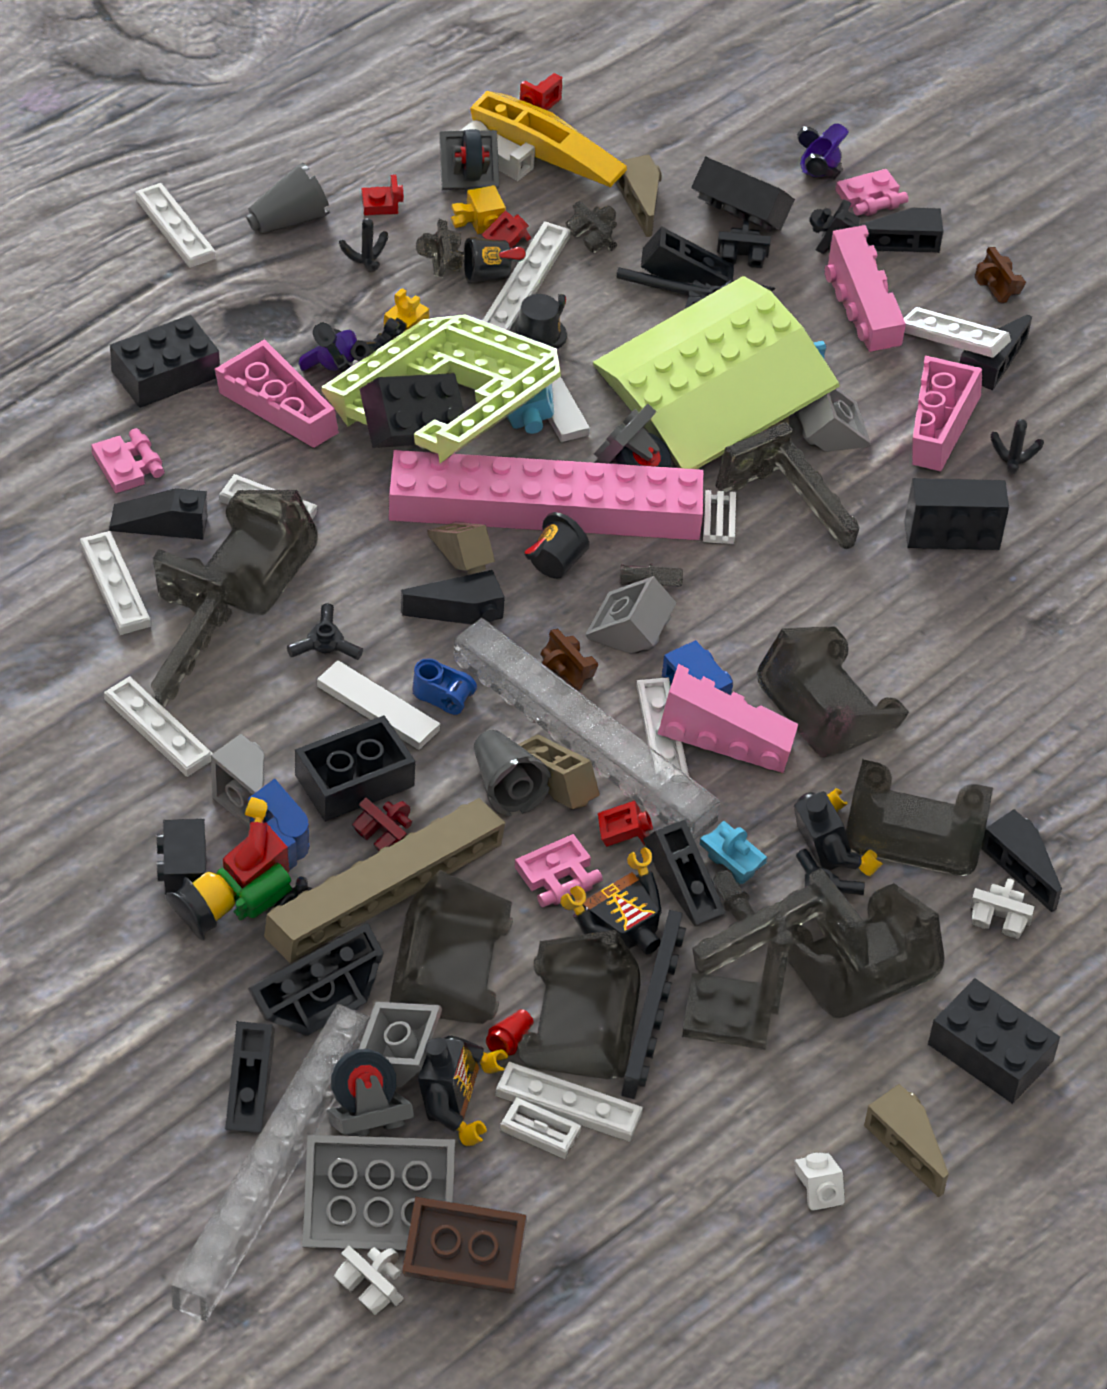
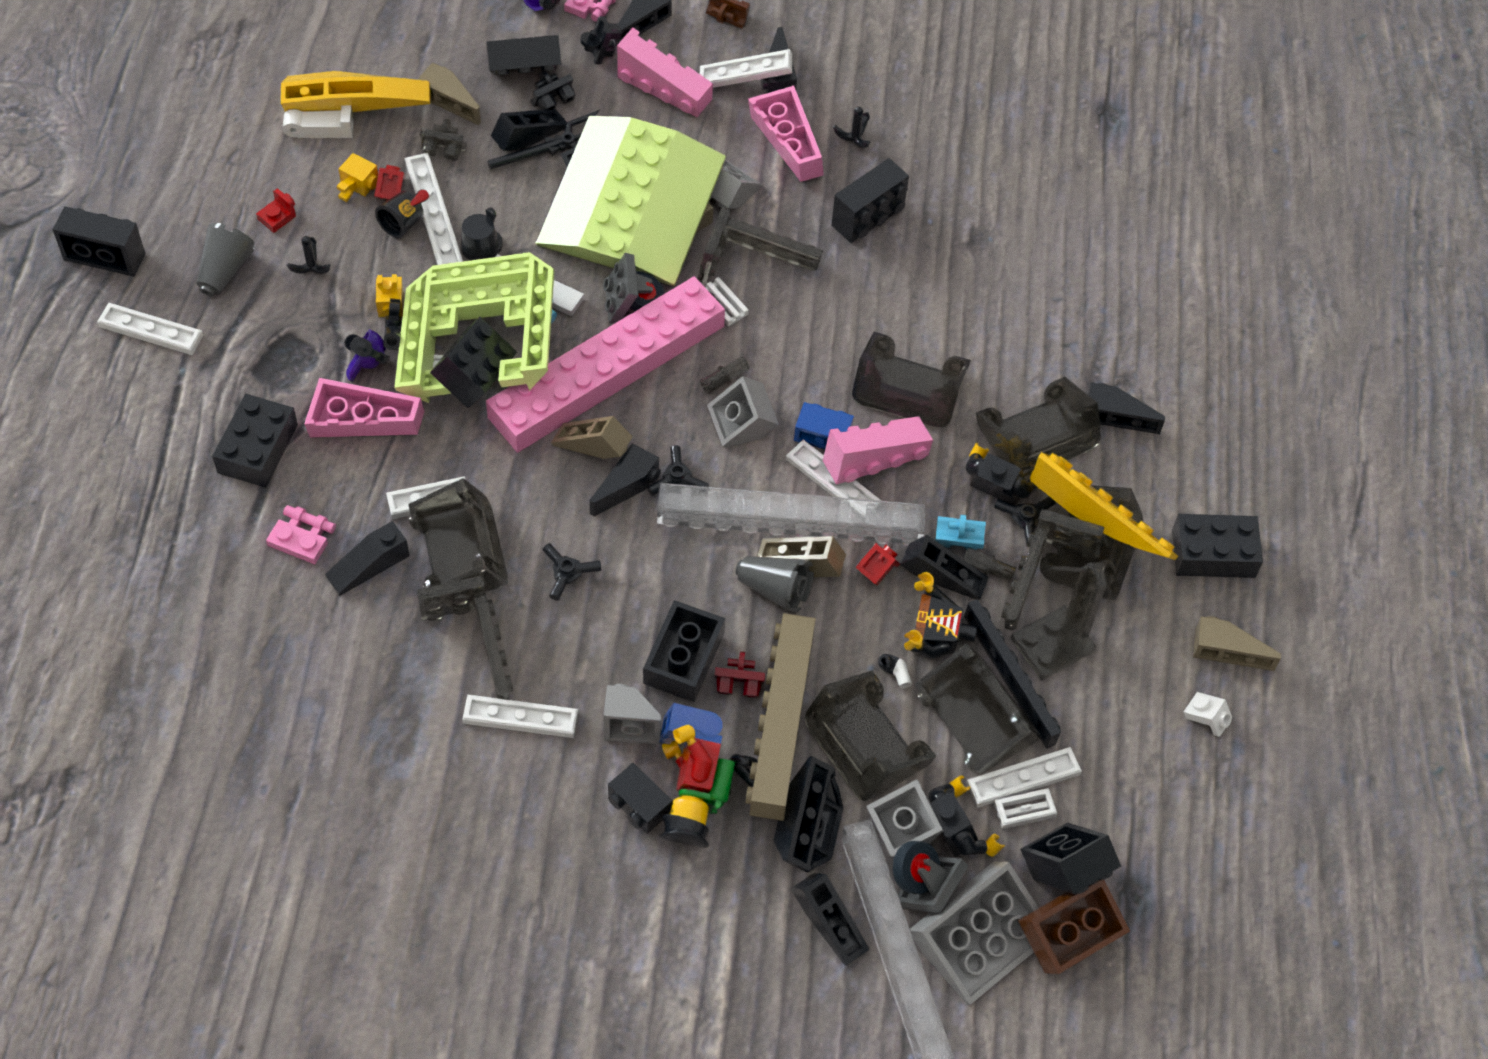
camera: 40 degrees left, 10 degrees up
(115, 583) = (385, 632): white tile -> none
(198, 126) = (99, 241): none -> black brick
(357, 1268) = (1047, 995): white hips -> none
(375, 702) = (645, 592): white tile -> none
(442, 249) = (356, 224): clear smoke hips -> none
(442, 686) = (677, 549): blue piece -> none
(469, 159) = (313, 144): dark grey plate -> none
(509, 1032) = (950, 760): red cone -> none
(516, 625) = (676, 473): none -> black piece
(518, 1181) = (1071, 858): none -> black brick
(545, 94) = (310, 61): red bracket -> none
(545, 921) = (896, 667): none -> arm
(554, 862) = (861, 623): bright pink plate -> none
(558, 546) = (652, 395): black hat -> none
(563, 657) = (733, 473): reddish brown hips -> none
(884, 905) = (1079, 498): none -> yellow wedge
(1004, 904) = (1129, 459): white hips -> none

